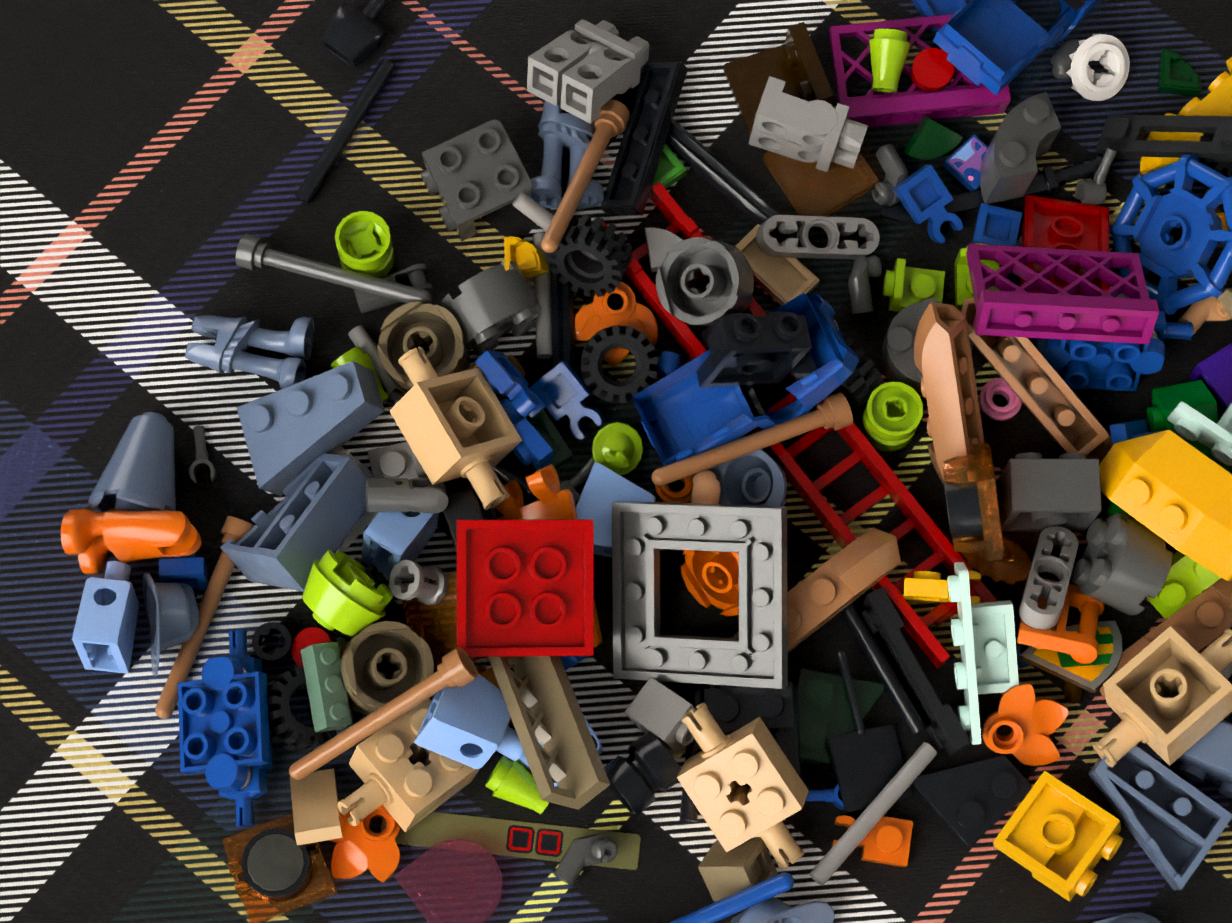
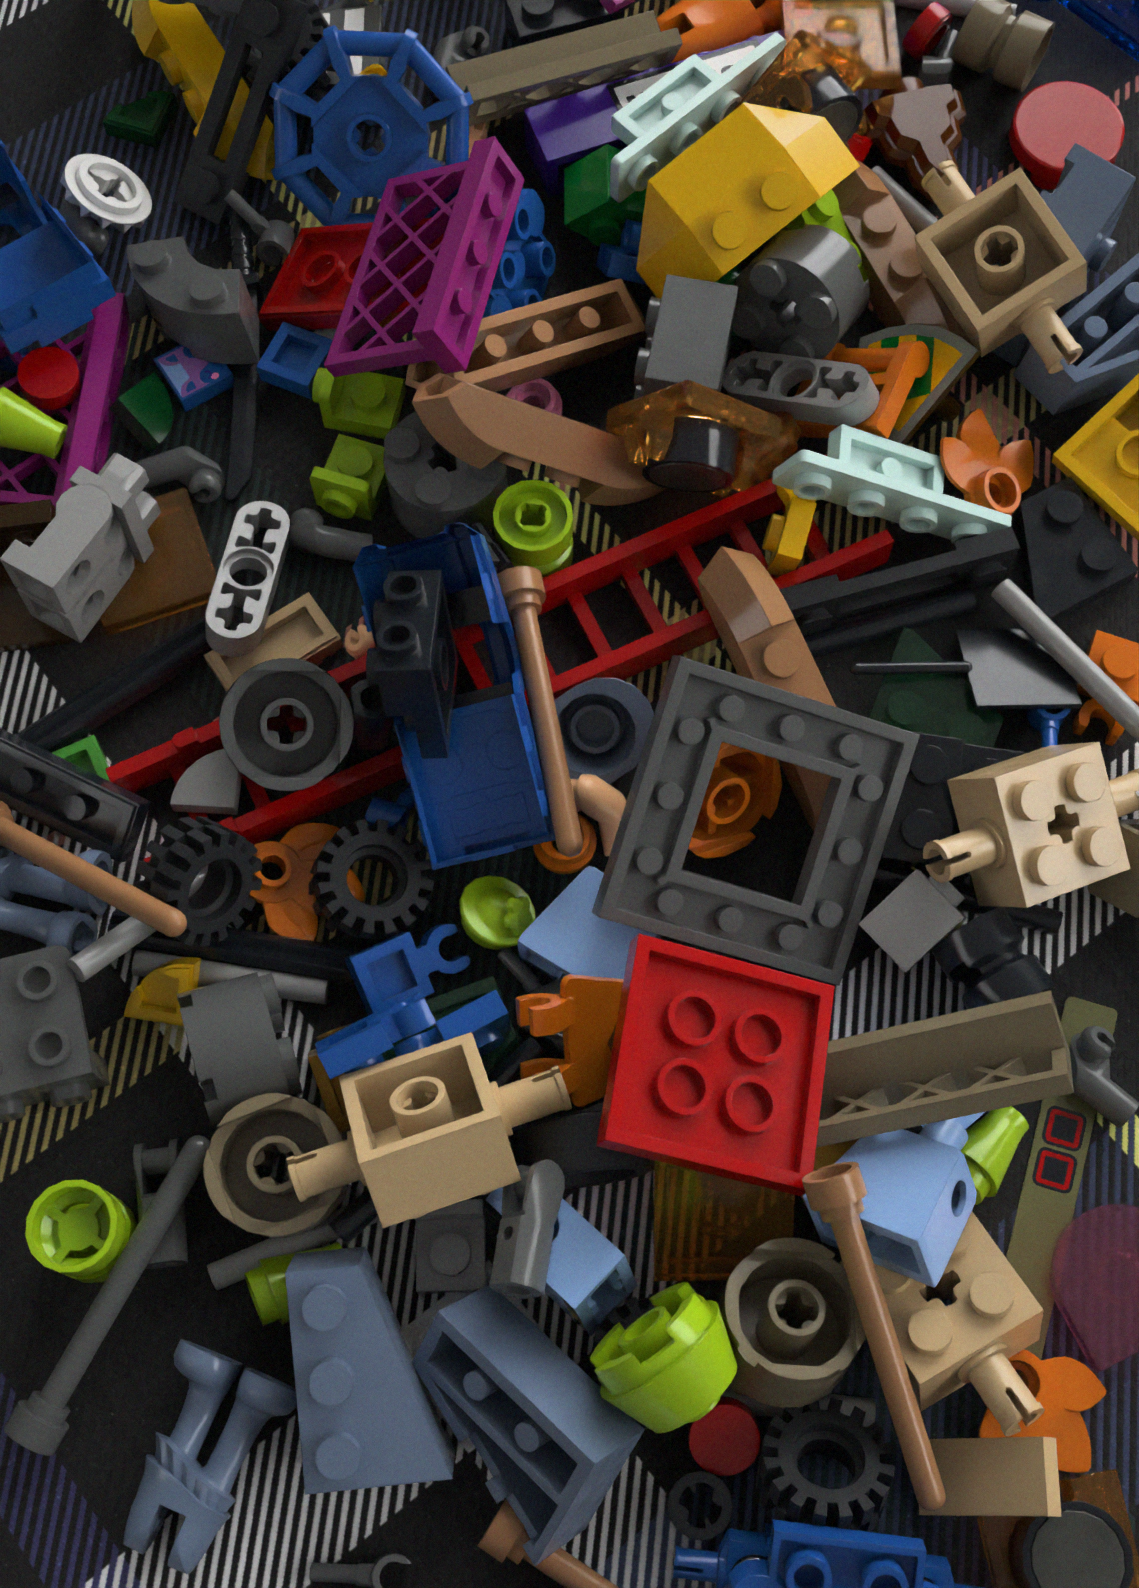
camera: 75 degrees left, 5 degrees down
(325, 687) = (807, 1422): sand green piece -> none
(417, 576) = (676, 1248): light grey bush -> none
(925, 198) = (231, 433): blue plate -> none

